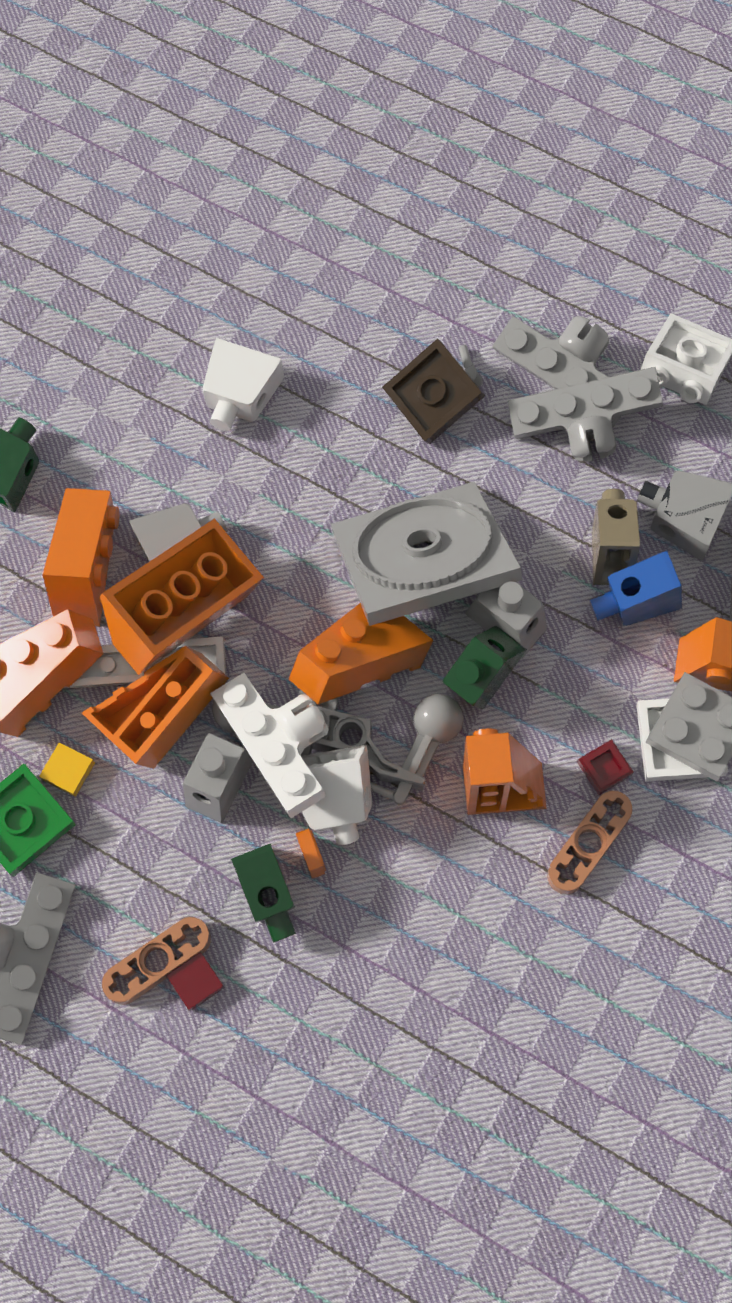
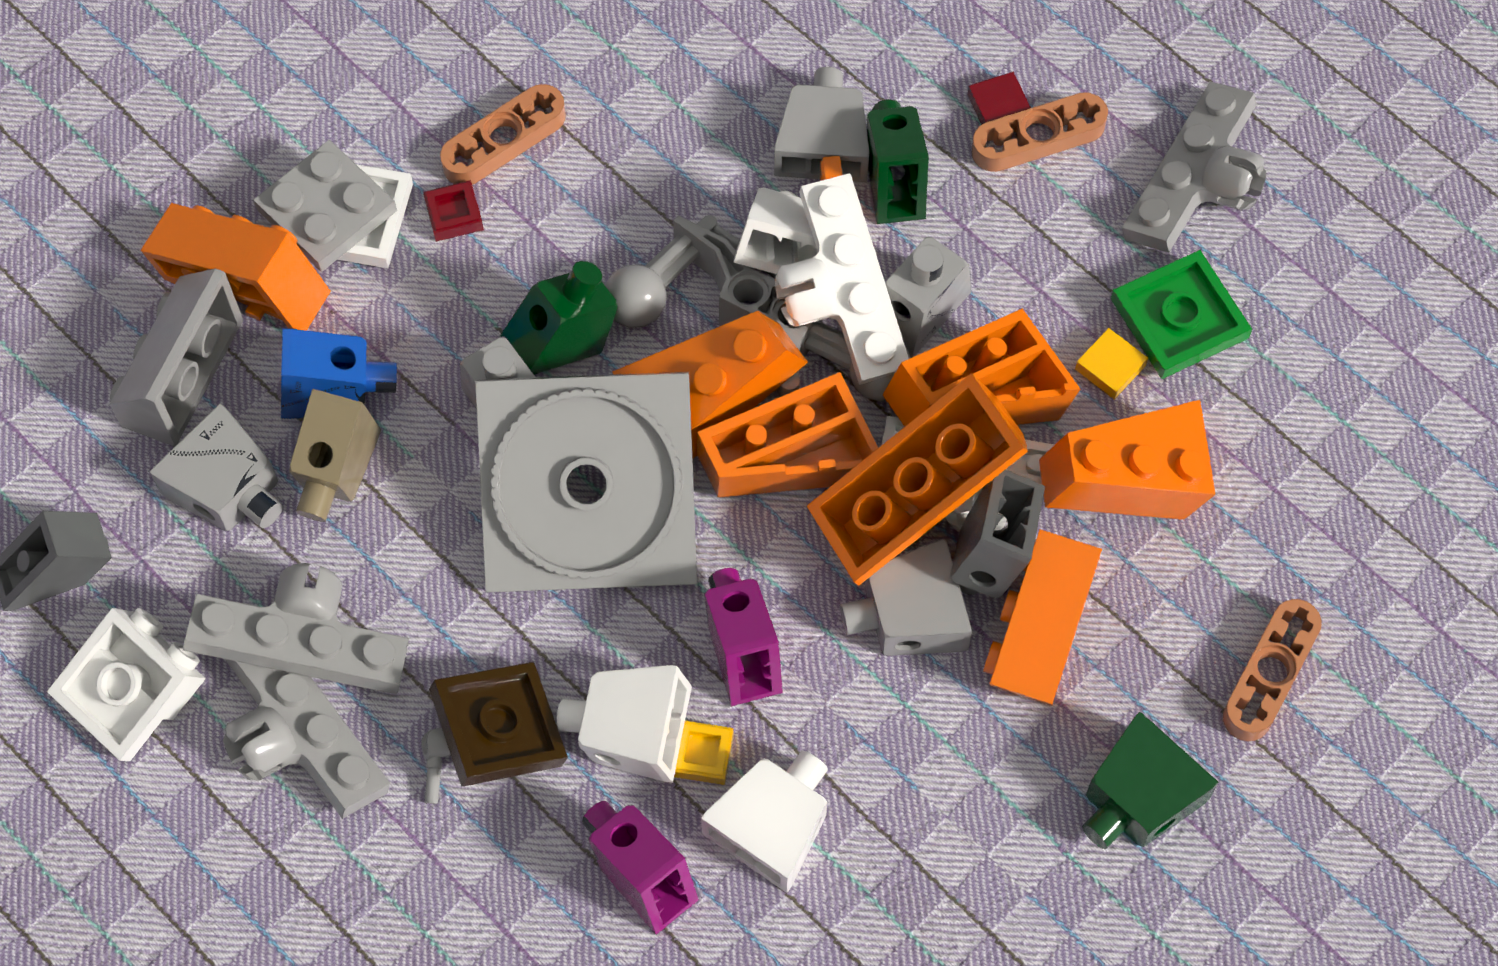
camera: 170 degrees left, 5 degrees down
(111, 560) = (991, 558): none -> dark grey torso
(276, 630) = (787, 443): none -> orange wedge
(281, 473) = (742, 637): none -> magenta torso
(296, 420) = (704, 752): none -> yellow tile
(313, 327) = (640, 863): none -> magenta torso
(331, 907) = (822, 123): none -> light grey torso
(346, 414) = (631, 719): none -> white torso
(501, 774) = (587, 192): orange wedge -> none

